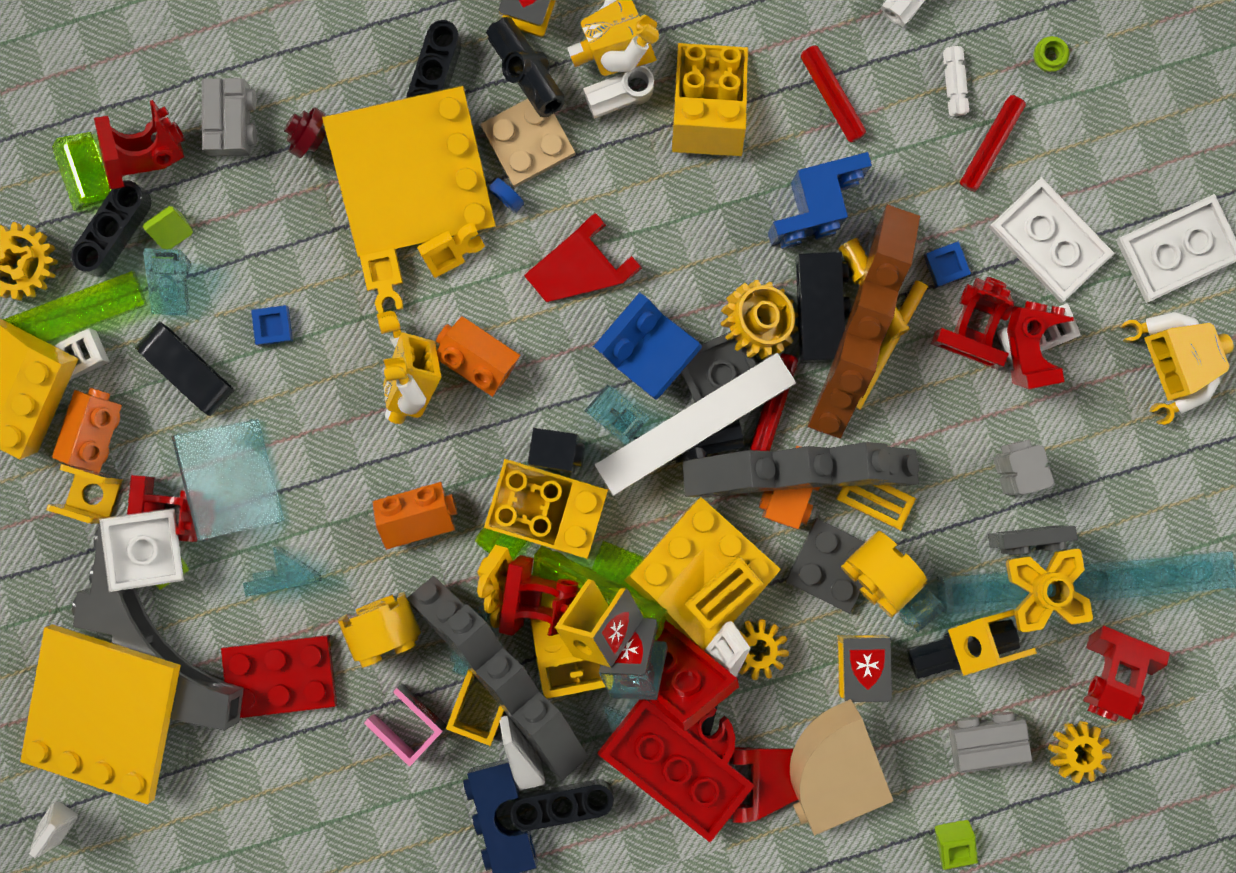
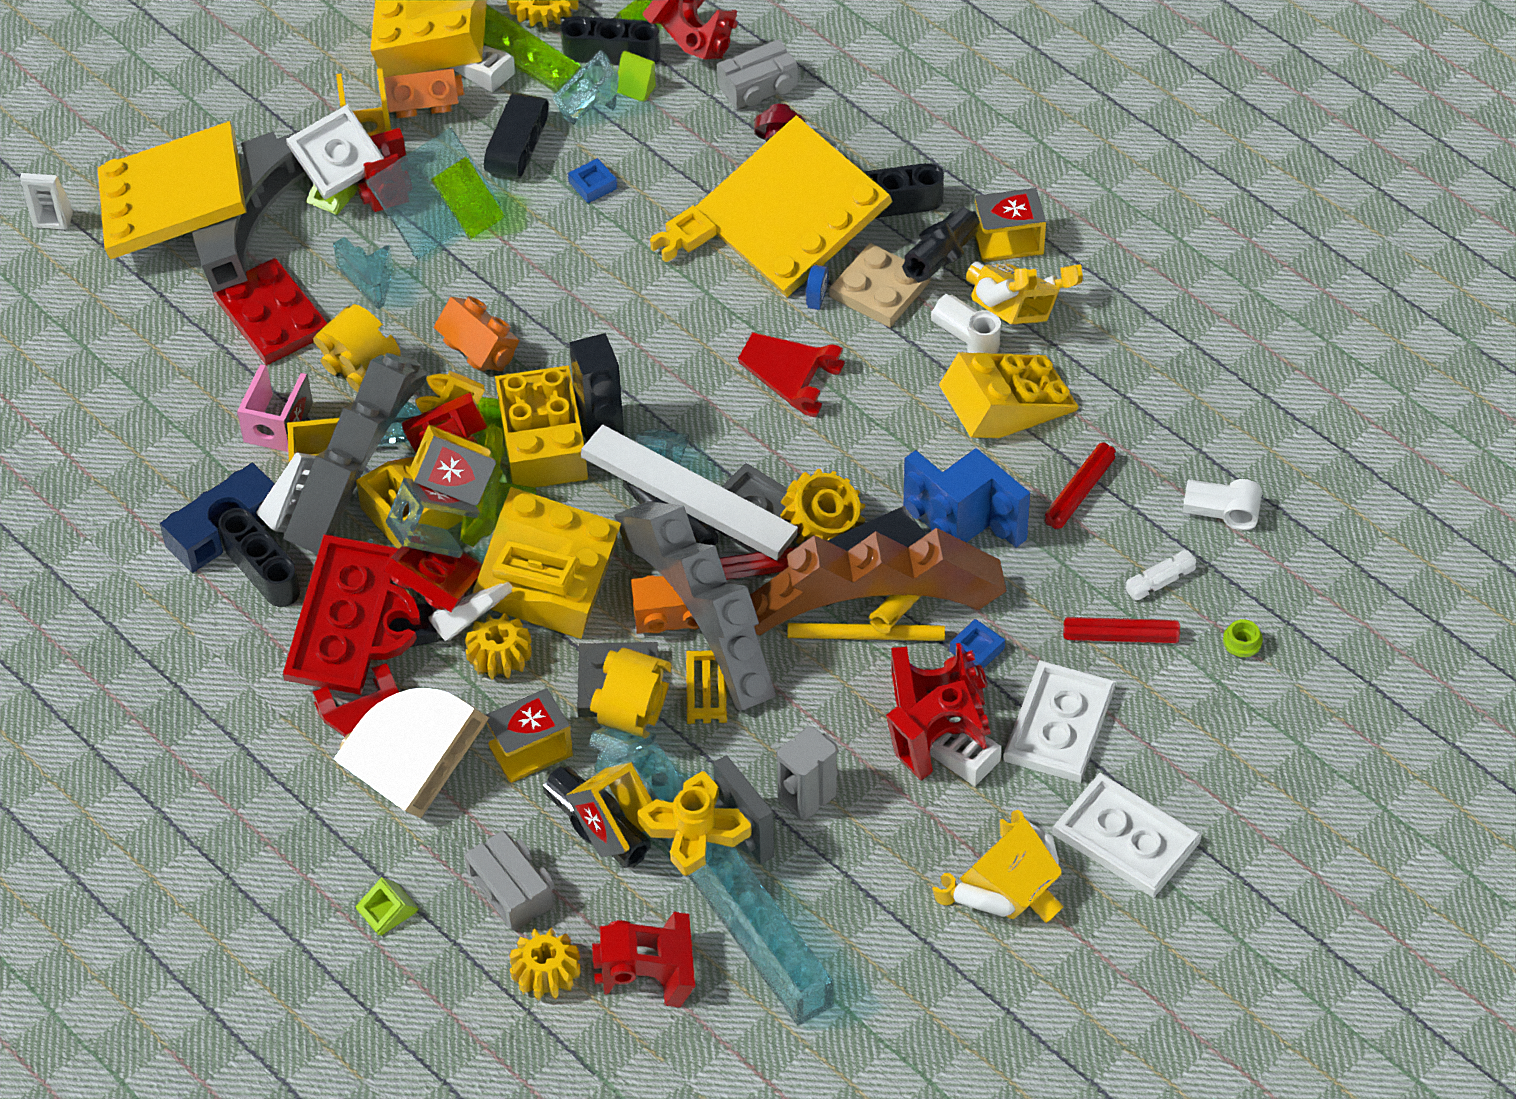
camera: 65 degrees right, 35 degrees down
(248, 452) = (468, 197): none -> clear neon green slope
(410, 373) = (604, 268): torso -> none
(446, 252) = (736, 265): yellow plate -> none
(476, 355) = (653, 319): orange brick -> none
(647, 346) = (743, 429): blue bracket -> none

